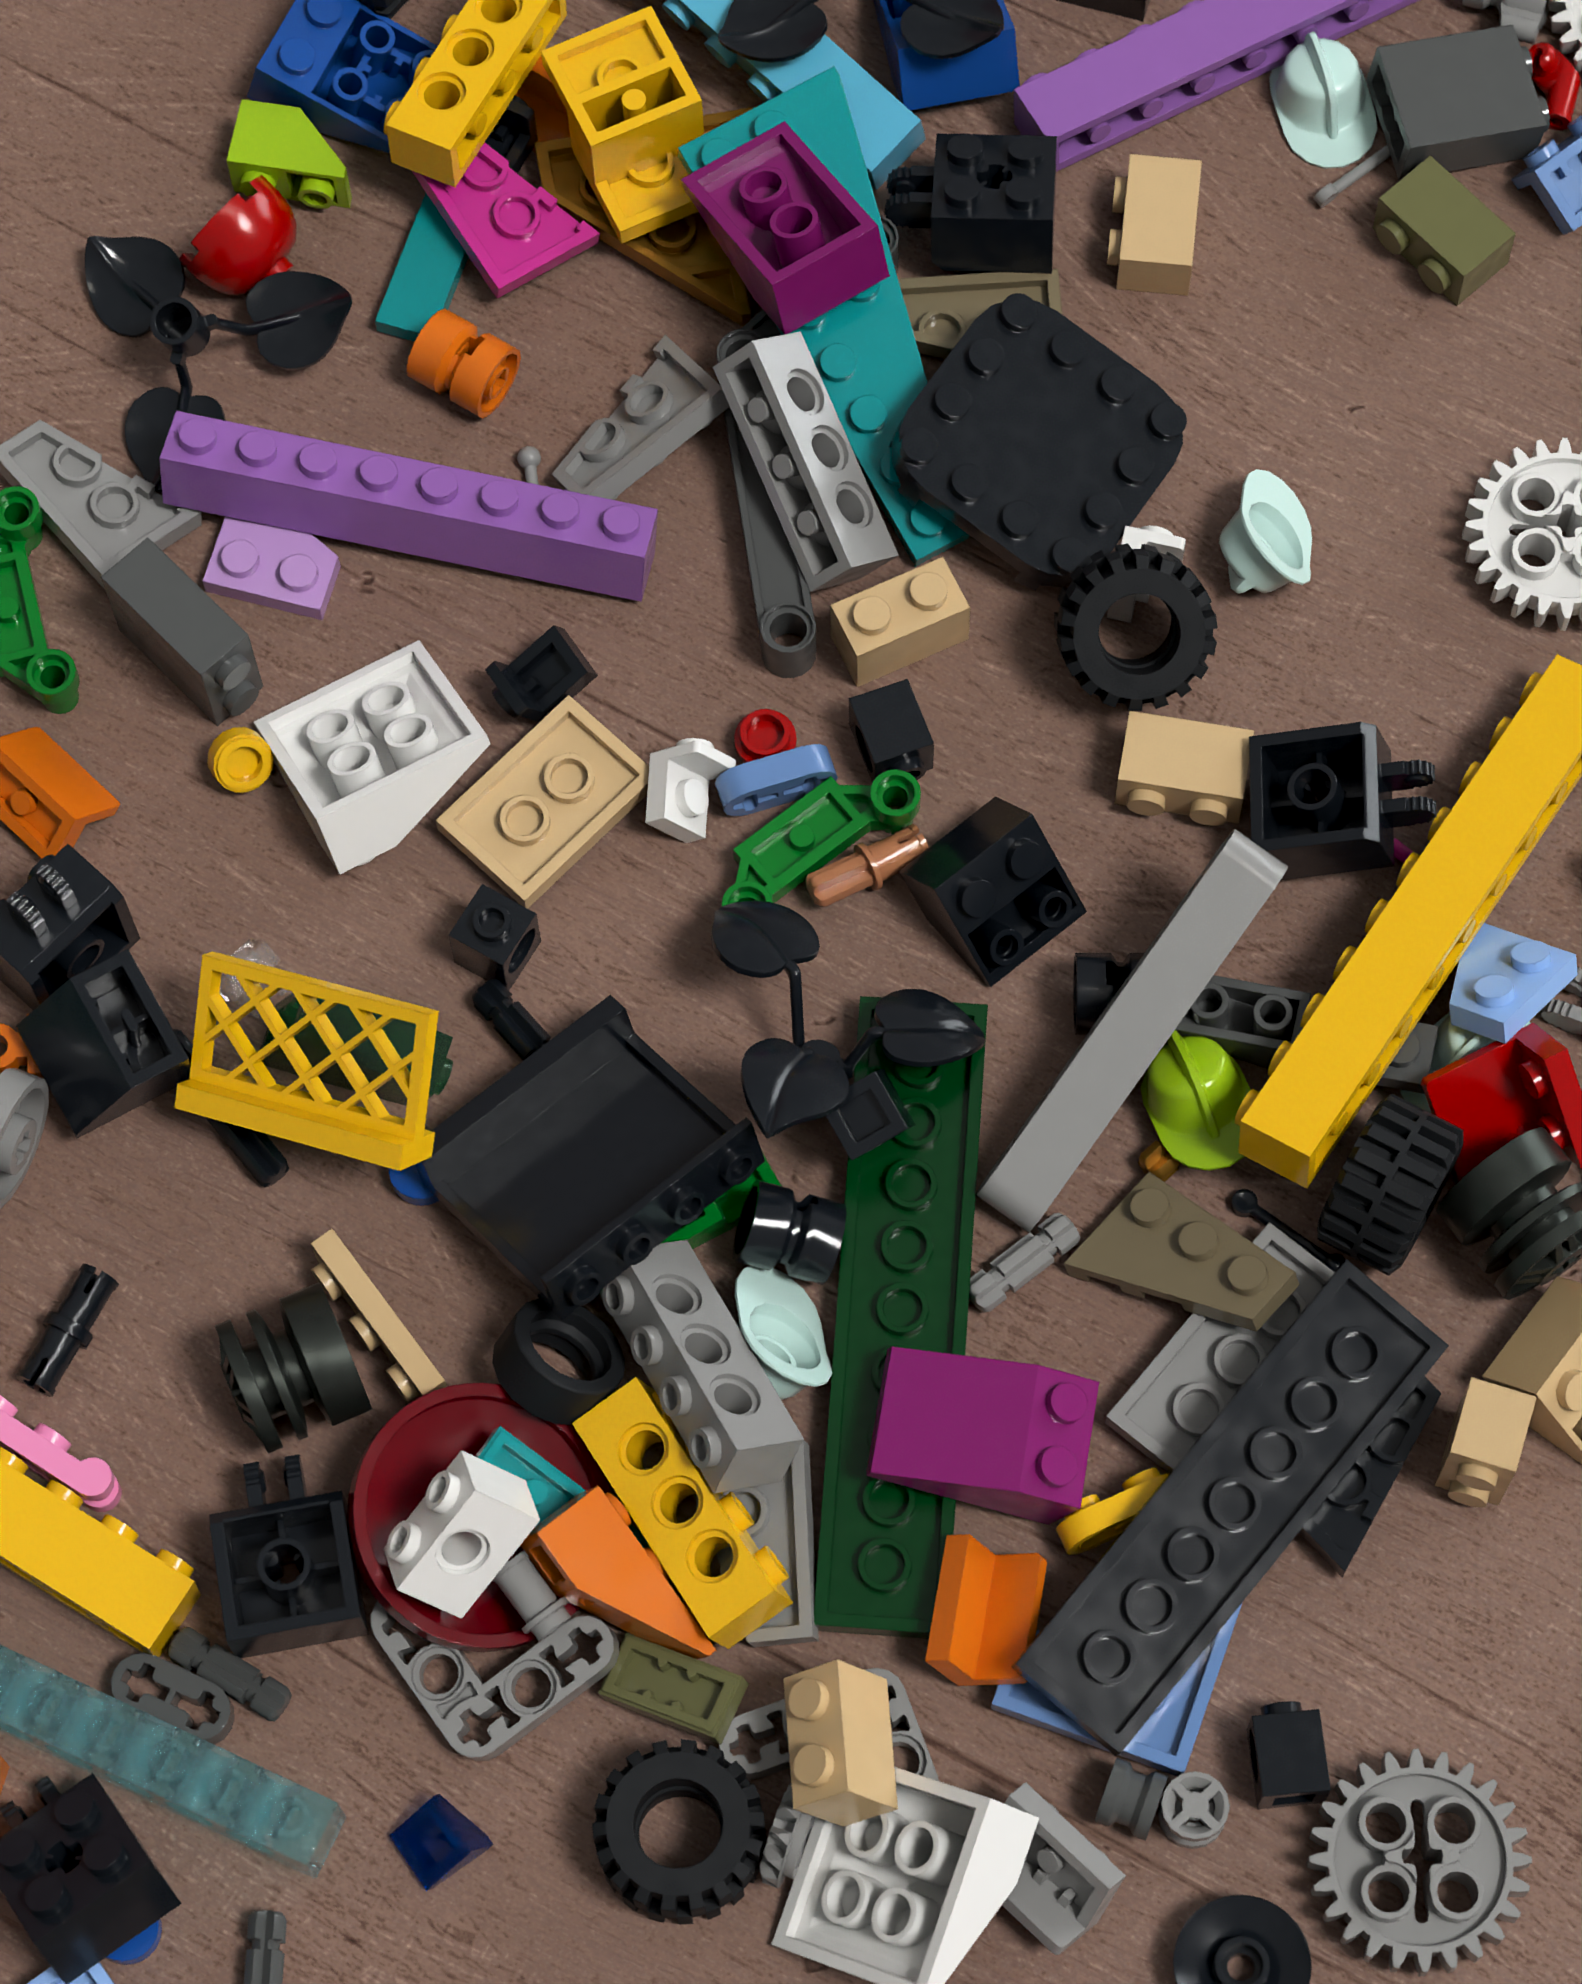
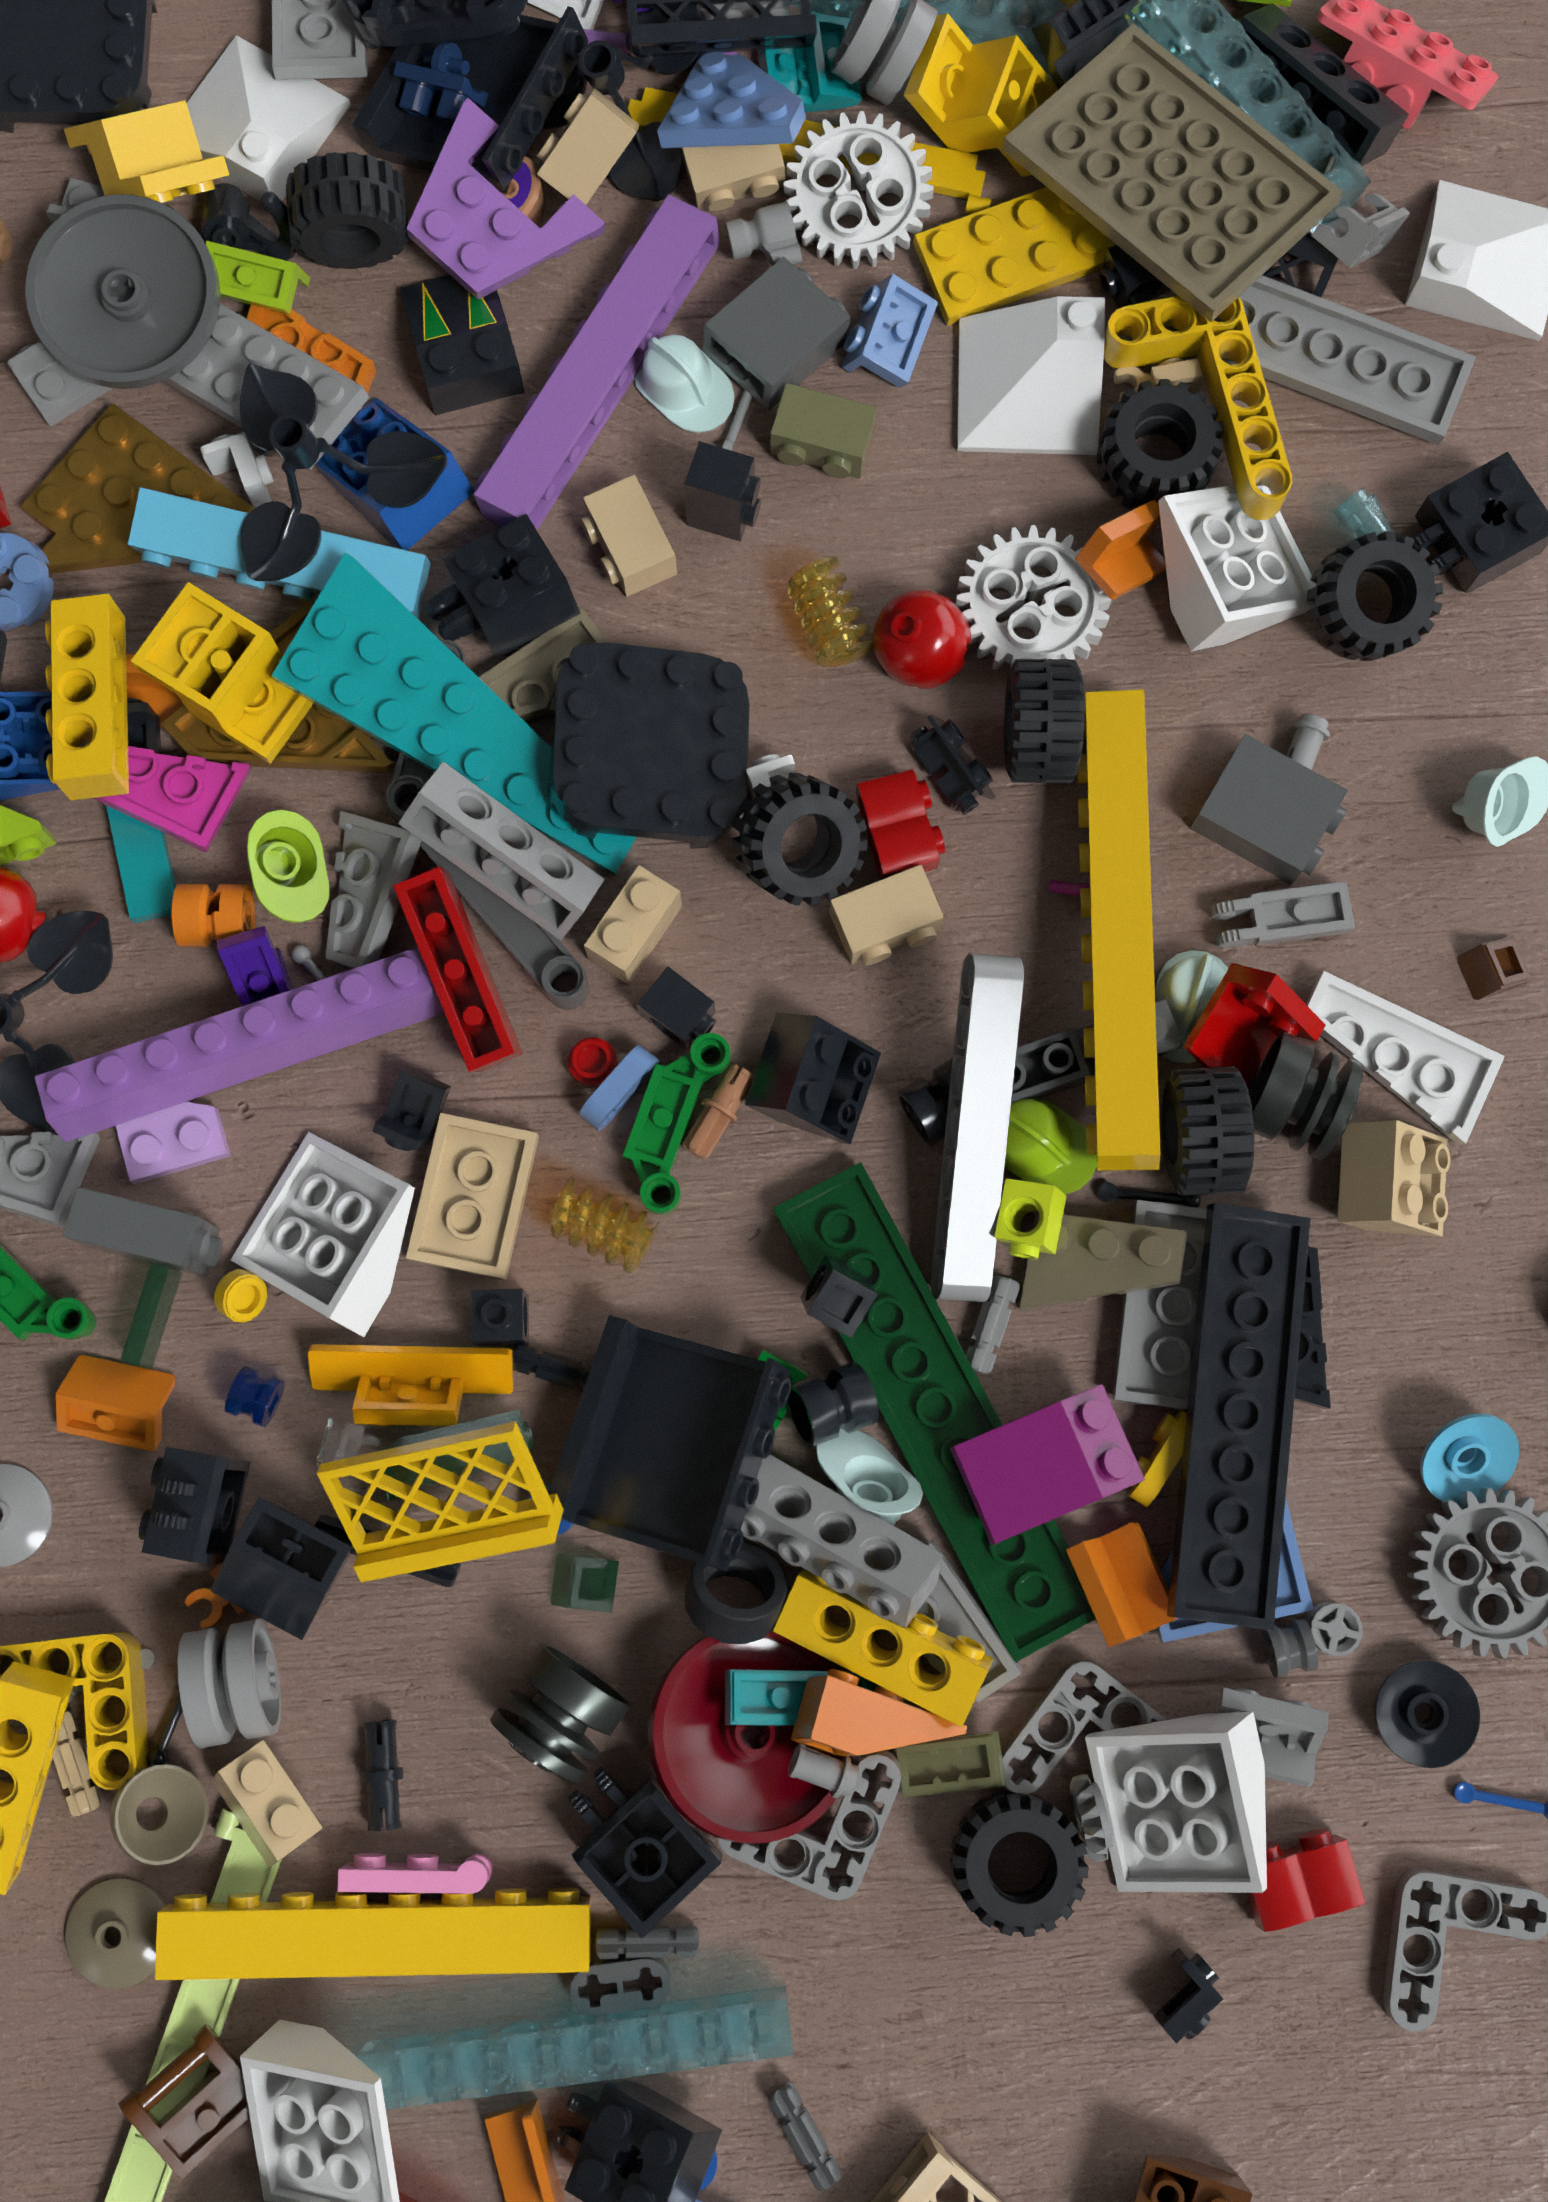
camera: 35 degrees left, 10 degrees up
(136, 726) = (151, 1316): none -> clear green tile
(188, 868) = (254, 1396): none -> clear blue wheel
(358, 945) = (410, 1381): none -> light orange bracket
(374, 1318) = (592, 1638): tan plate -> none
(407, 1267) = (584, 1583): none -> clear green slope
(439, 1841) = (860, 1965): clear blue slope -> none
(460, 1534) = (757, 1768): white brick -> none
(472, 430) = (254, 965): none -> dark purple slope
(572, 354) = (287, 866): none -> lime piece
(660, 910) = (601, 1226): none -> clear yellow piece
(681, 557) = (458, 969): none -> red brick
(681, 787) = (559, 1134): white bracket -> none
(788, 227) = (387, 690): magenta slope -> none
(810, 1079) = (781, 1311): black plant -> none
(840, 1743) = (1093, 1744): tan brick -> none
(1131, 1140) = (1019, 1199): none -> neon yellow brick
(1261, 675) = (899, 824): none -> red brick
(1267, 537) = (842, 720): light aqua piece -> none
(1284, 228) = (721, 491): none -> black brick
(1288, 1756) = (1370, 1555): black brick -> none
(1325, 420) = (825, 615): none -> clear yellow piece
(1328, 801) = (1029, 890): black hinge -> none
(1371, 675) = (944, 747): none -> black hinge
(1409, 500) = (921, 639): none -> red cylinder
(1485, 1443) = (1372, 1270): tan brick -> none
(1486, 654) = (1043, 720): none -> black tyre
(1495, 1741) = (1469, 1456): none -> medium azure dish
(1506, 982) = (1193, 943): light blue wing -> none
(1557, 81) = (832, 281): red arm -> none

